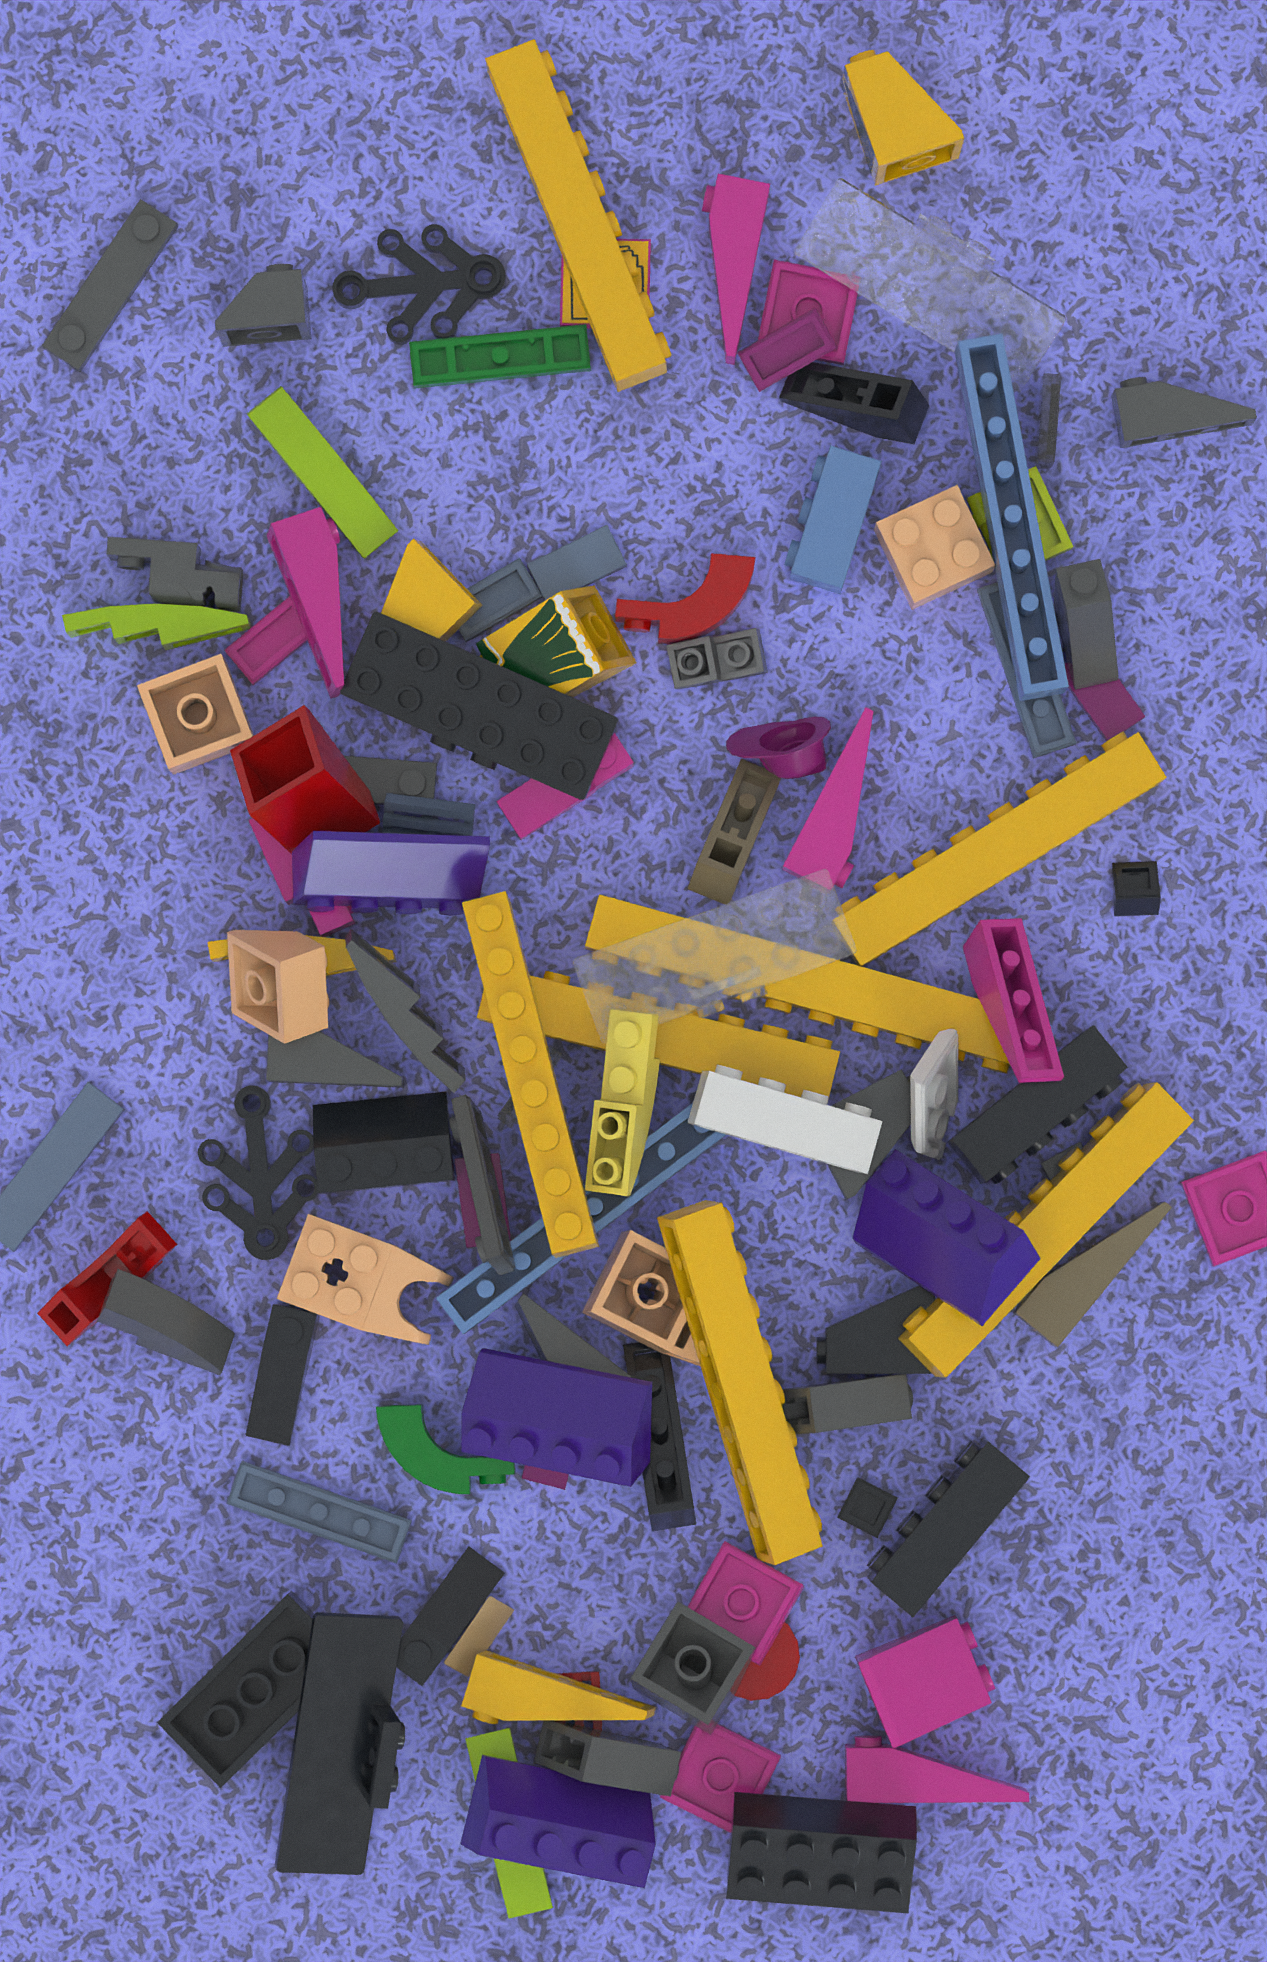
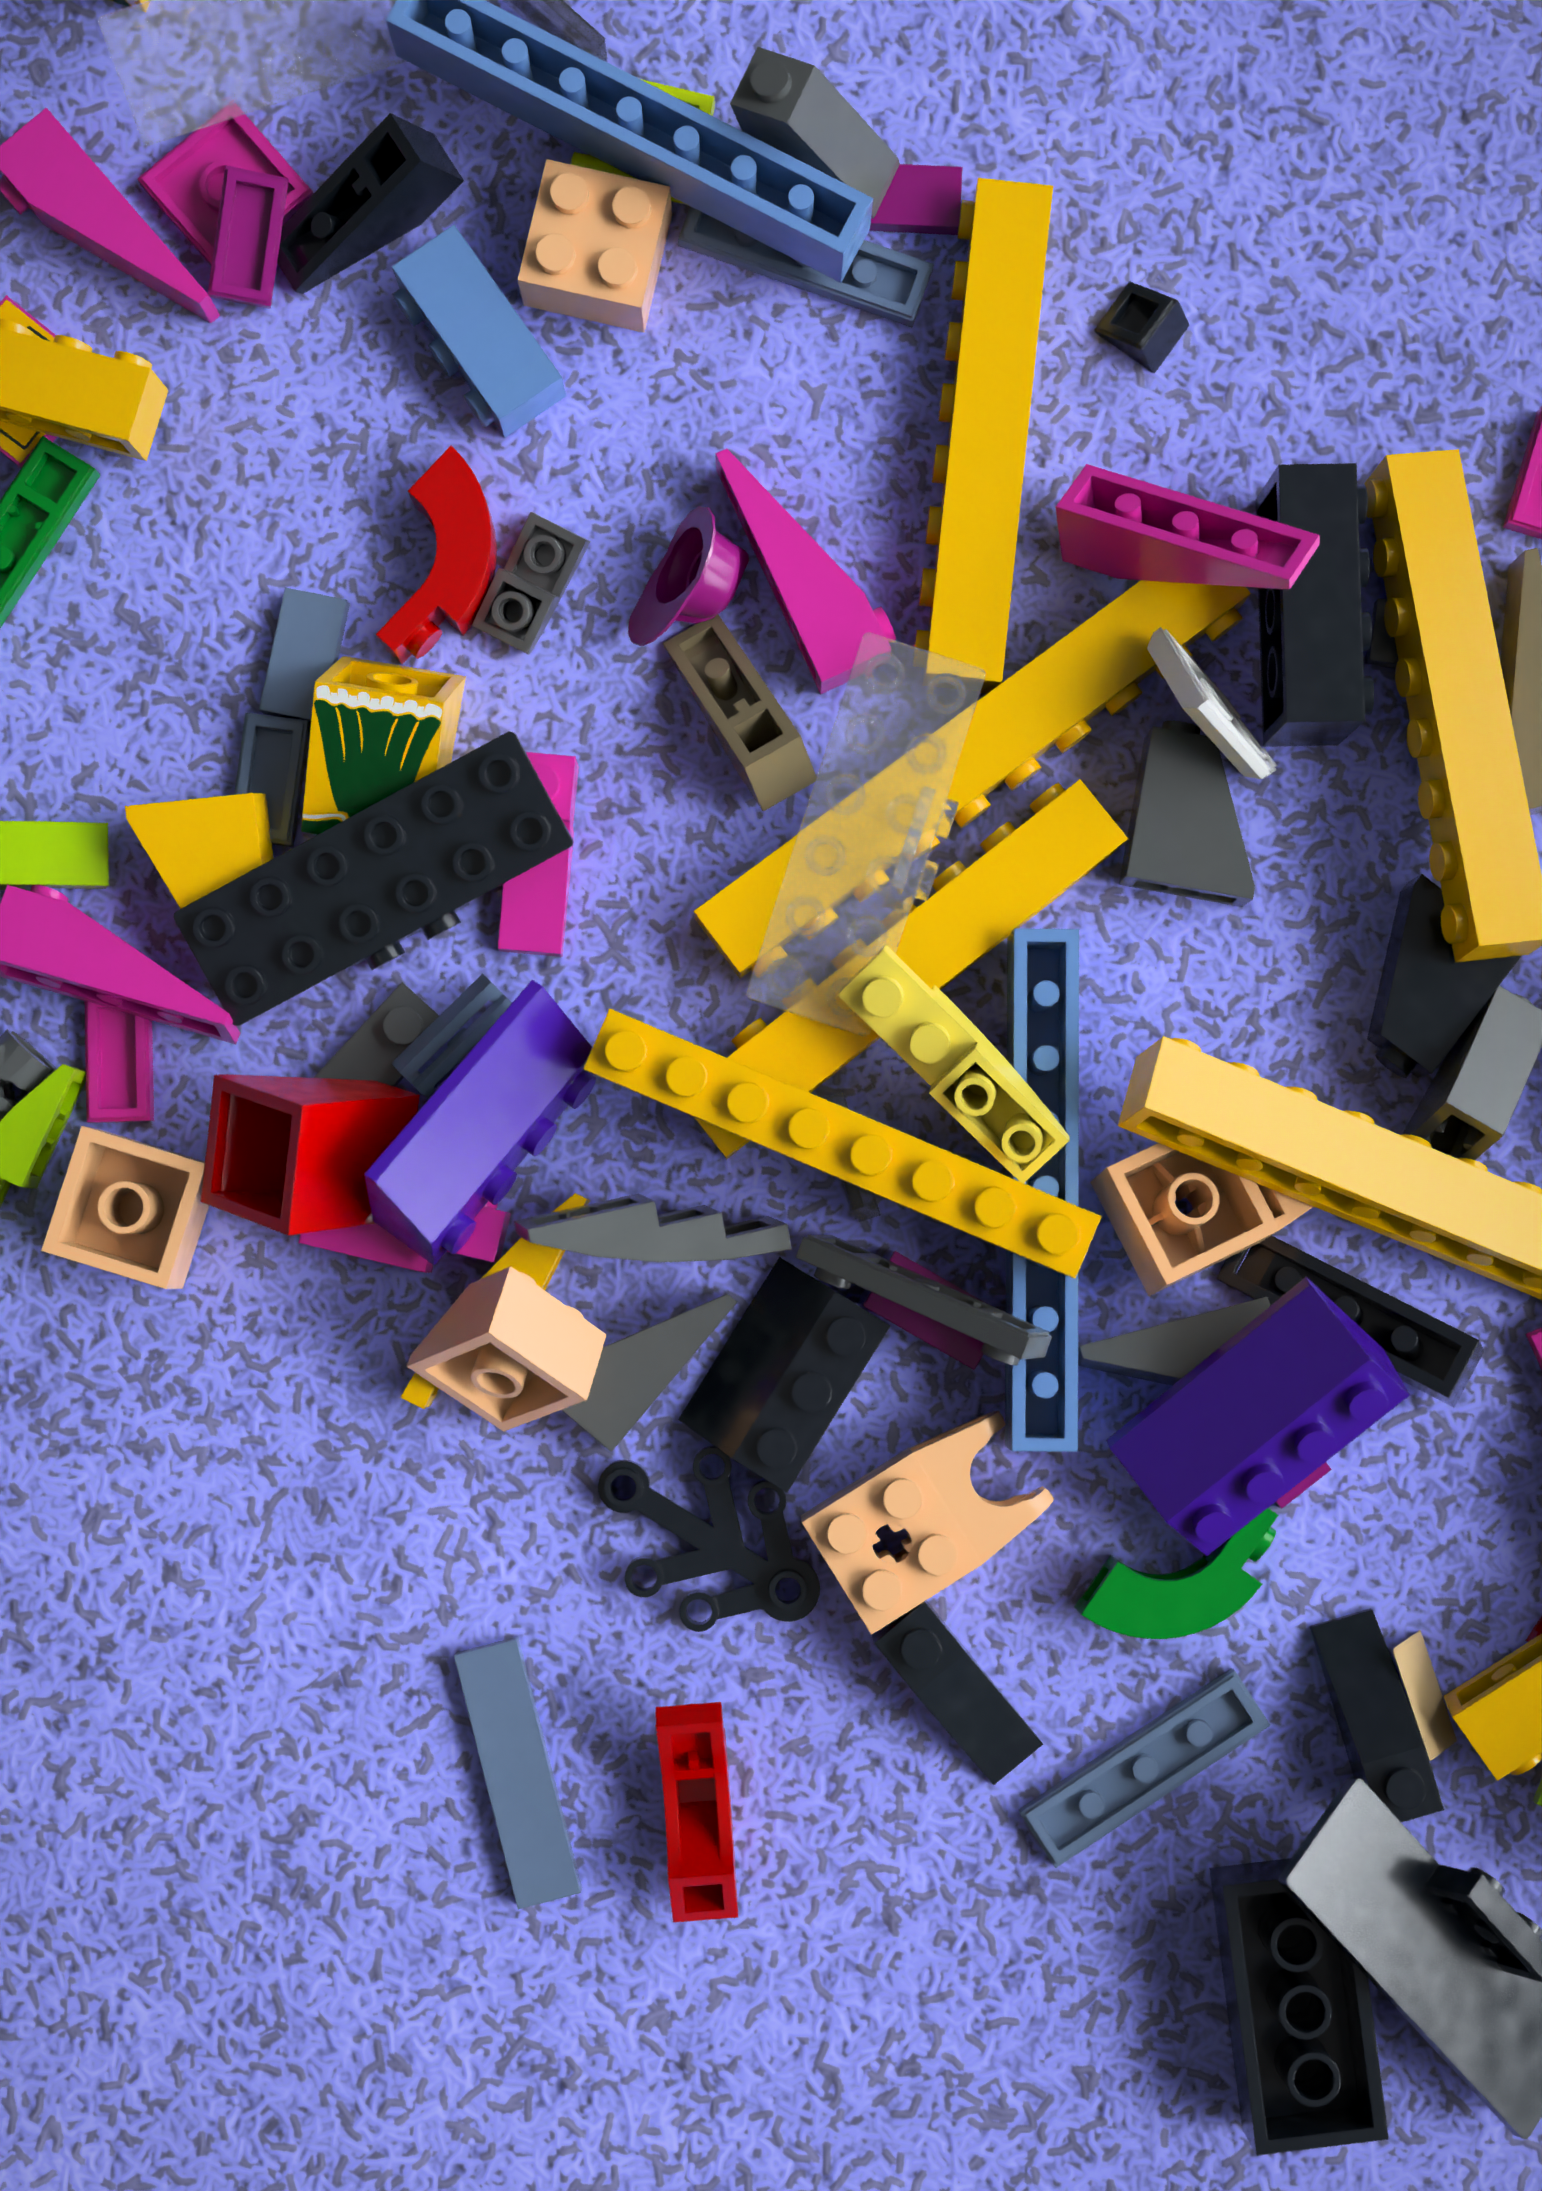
camera: 60 degrees left, 0 degrees up
(165, 1322) = (799, 1782): dark grey slope -> none
(785, 1121) = (1117, 896): white brick -> none
(942, 1238) = (1389, 821): dark purple slope -> none

